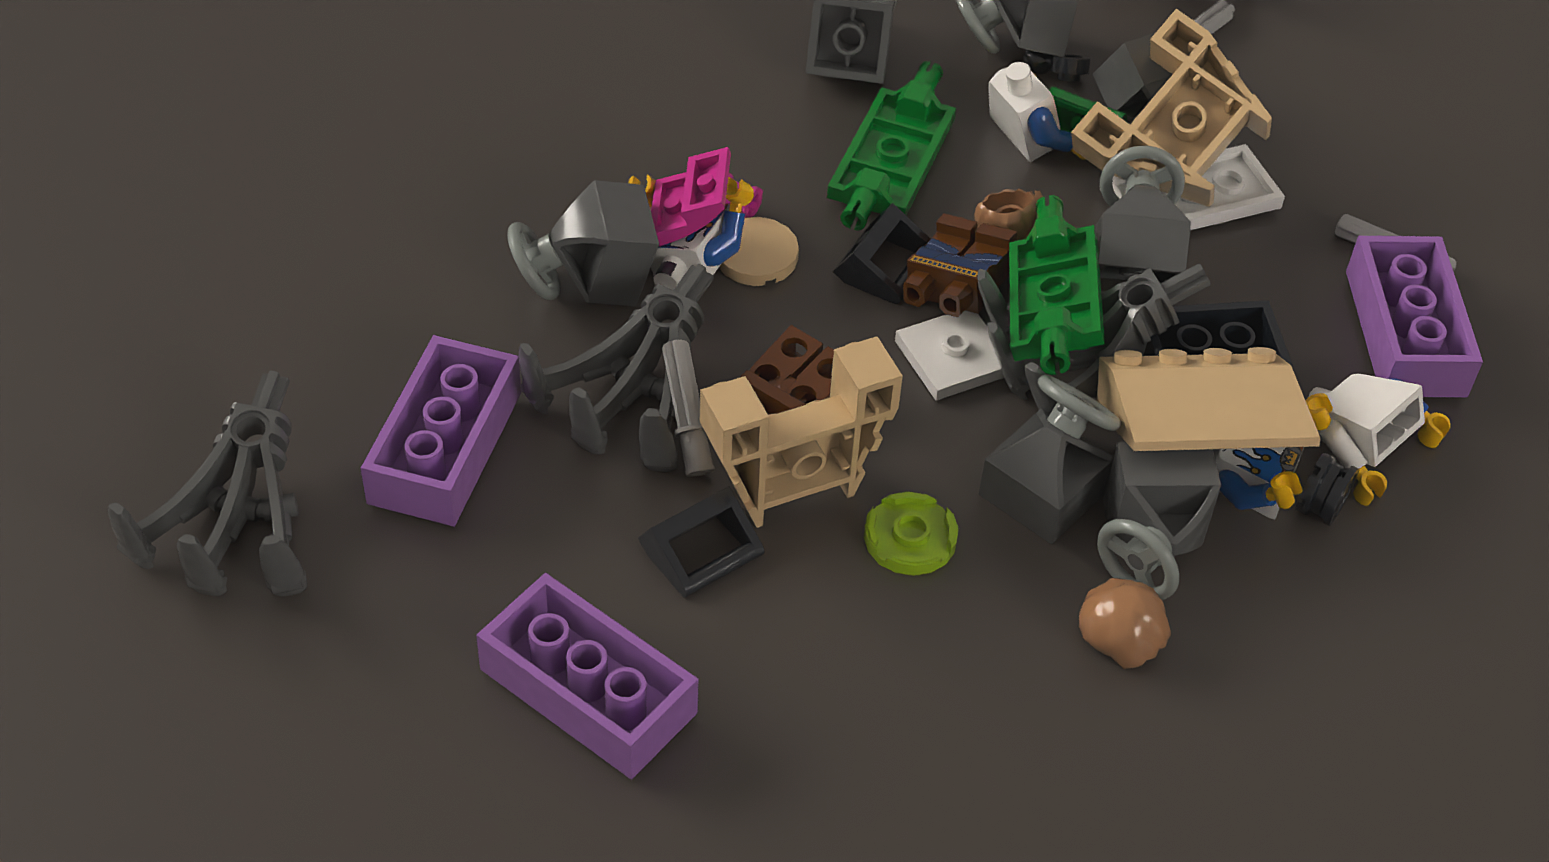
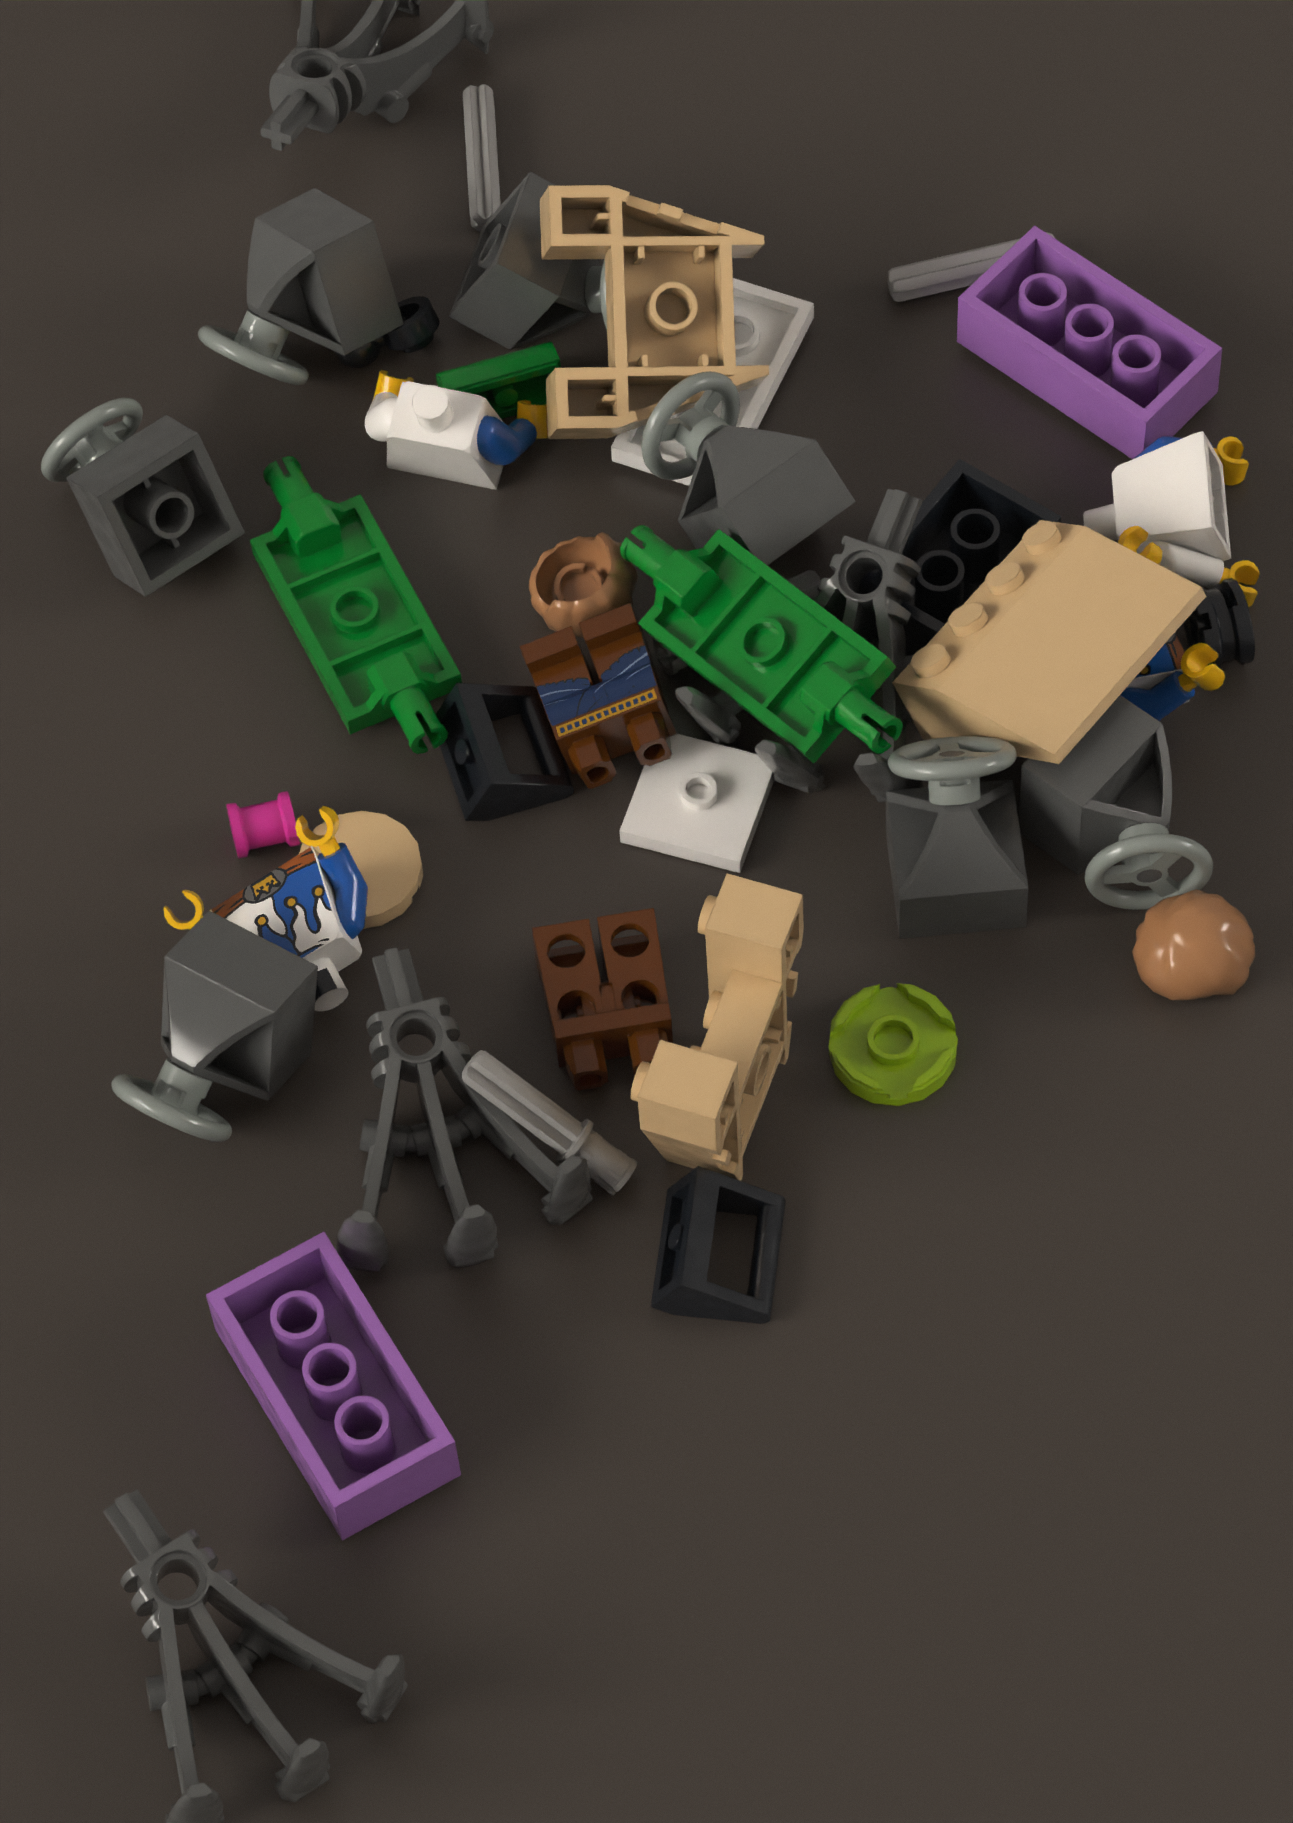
camera: 40 degrees left, 10 degrees up
(588, 675) = (804, 1489): medium lavender brick -> none
(691, 198) = (273, 873): dark pink slope -> none

